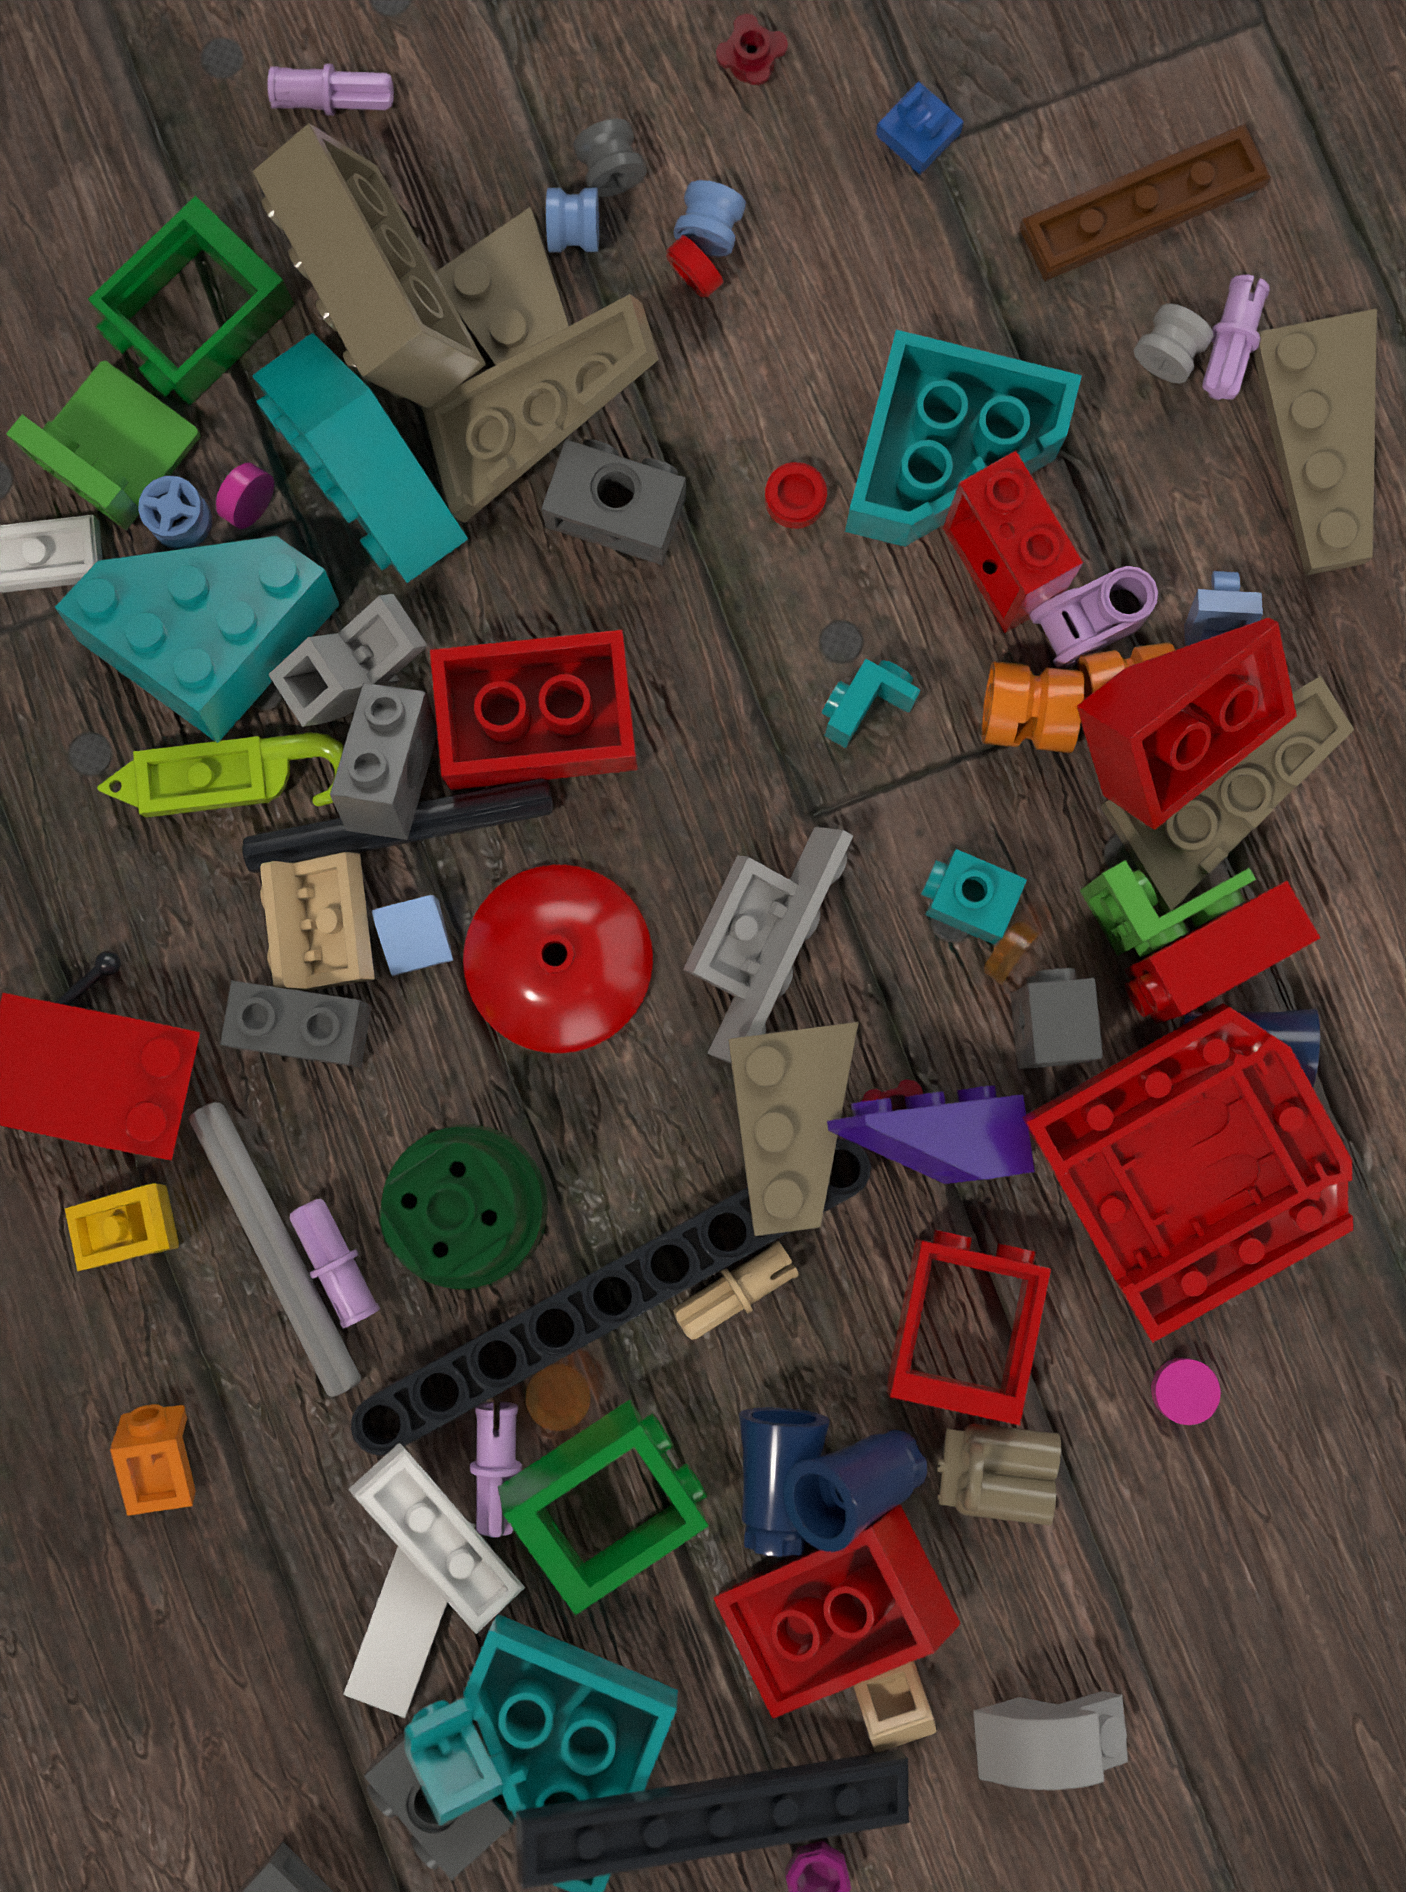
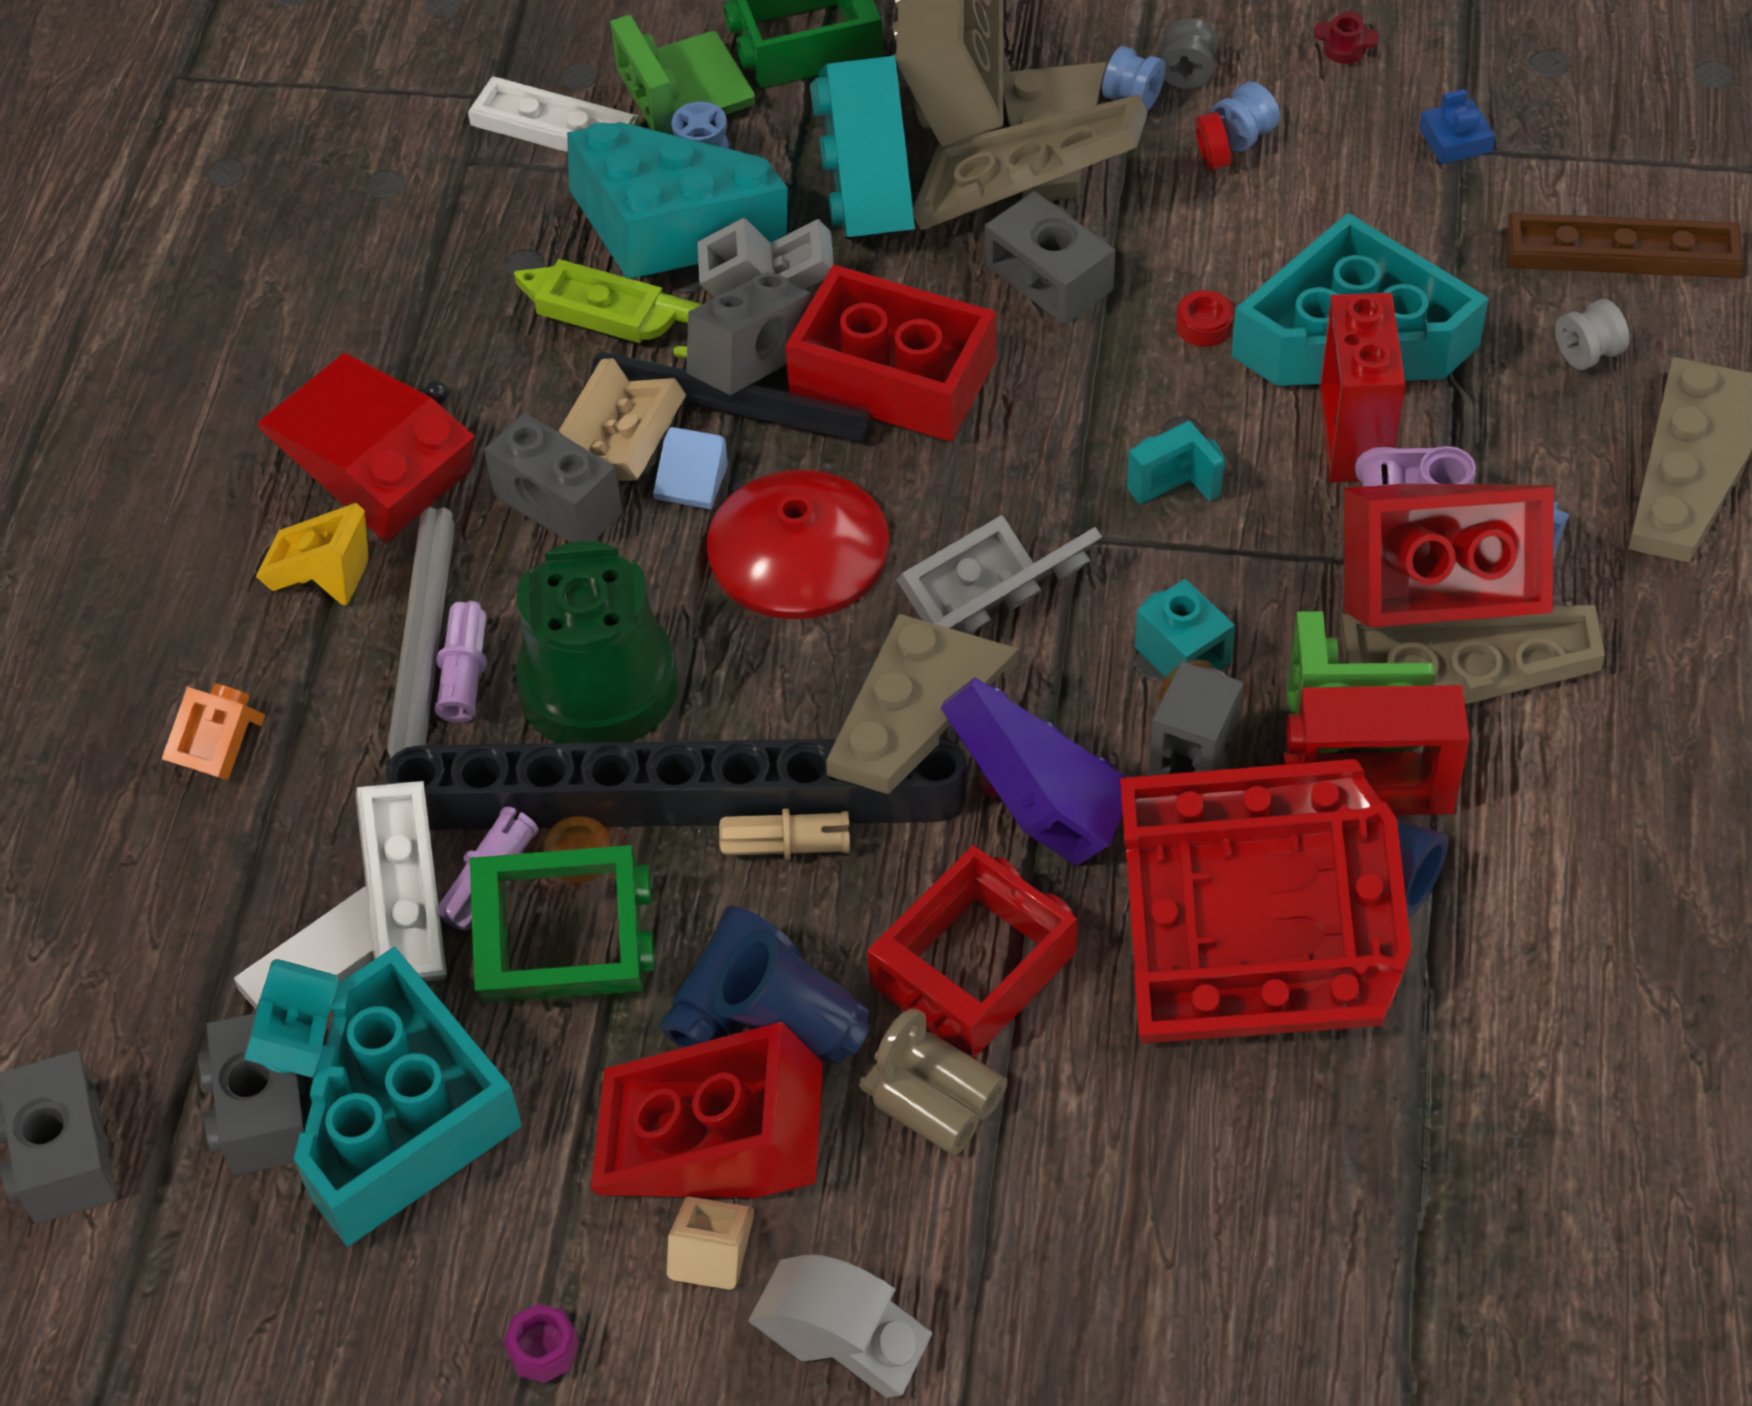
camera: 30 degrees right, 30 degrees down
(244, 495) = (763, 138): dark pink tile -> none
(710, 1818) = (485, 1202): black tile -> none
(1032, 707) = (1306, 517): orange wheel -> none
(1185, 1391) = (1150, 1108): dark pink tile -> none
(1235, 337) = (1651, 353): lavender axle -> none

